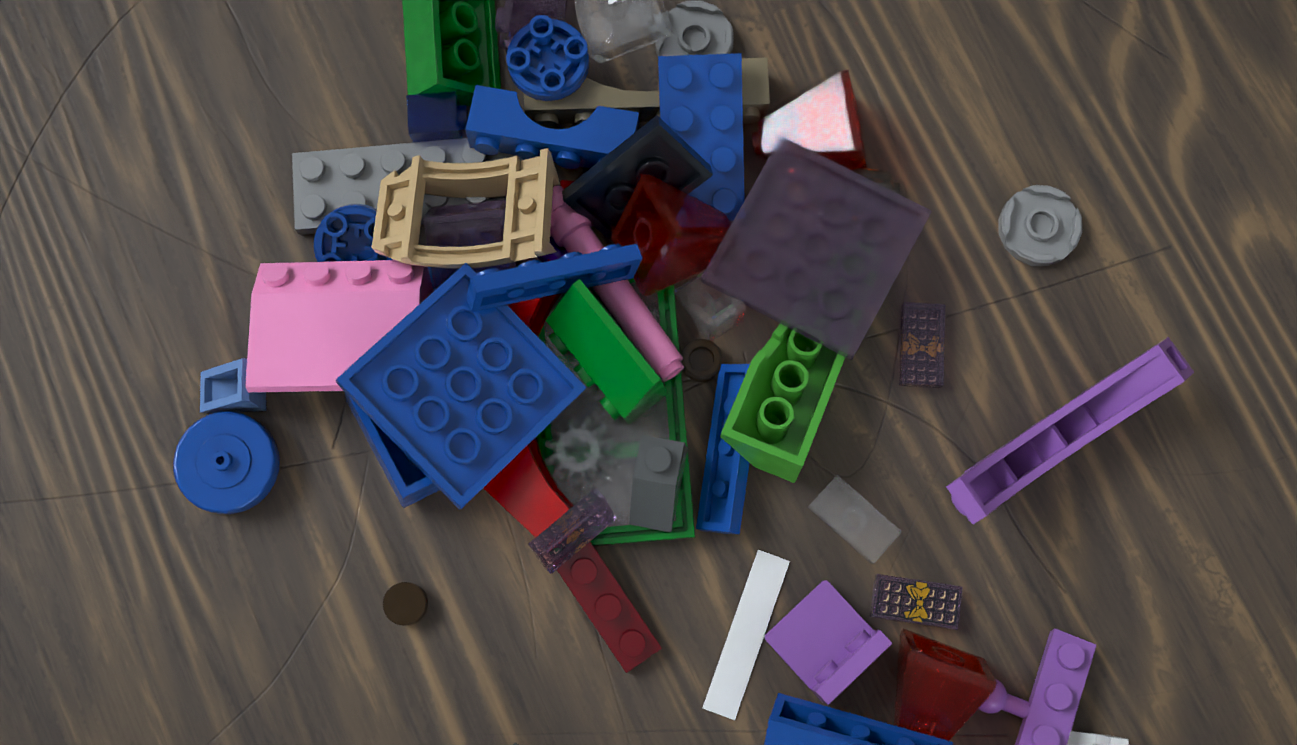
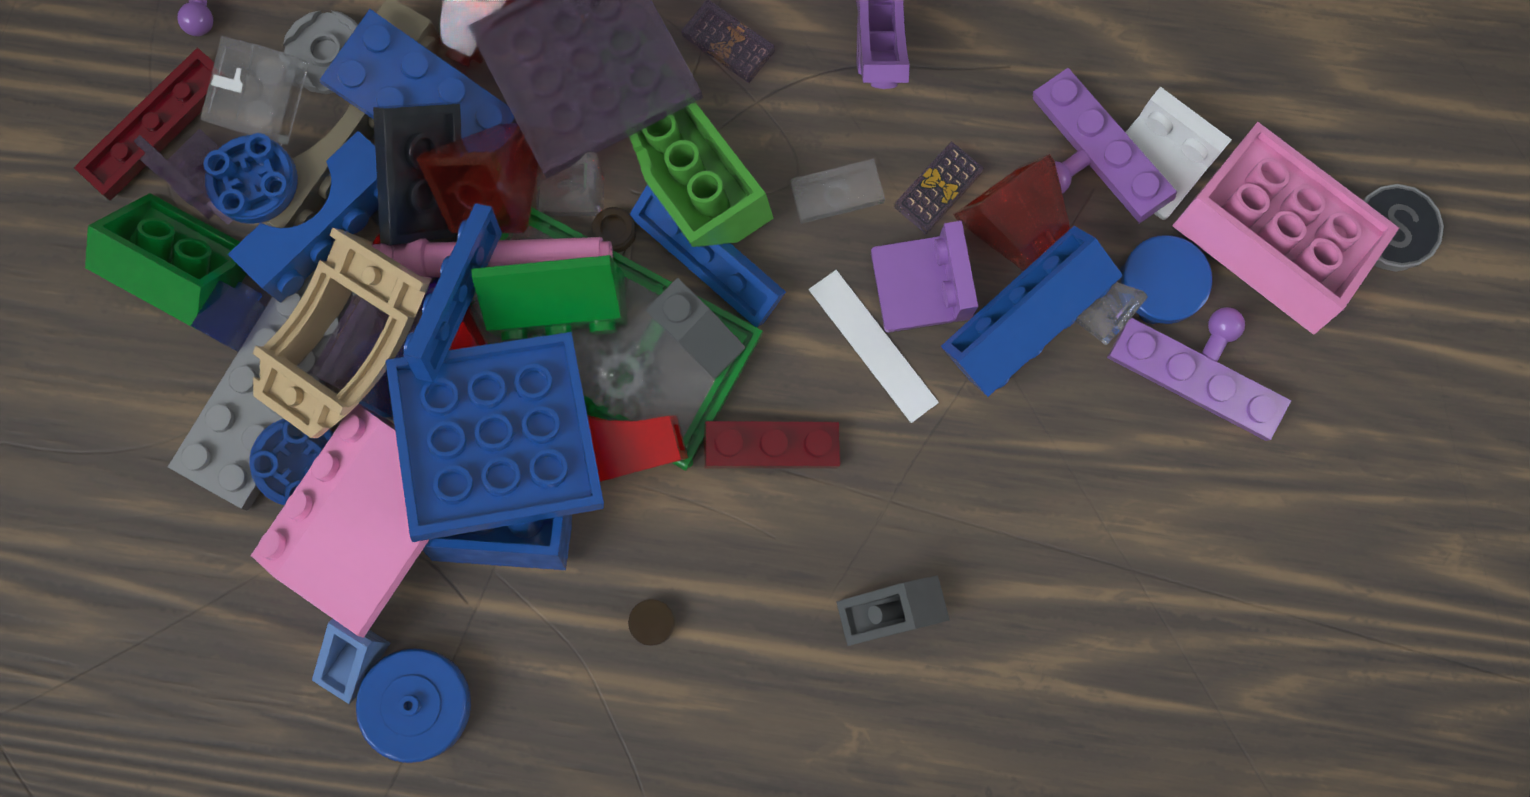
camera: 55 degrees left, 0 degrees up
(572, 531) = (688, 427): clear purple tile -> none

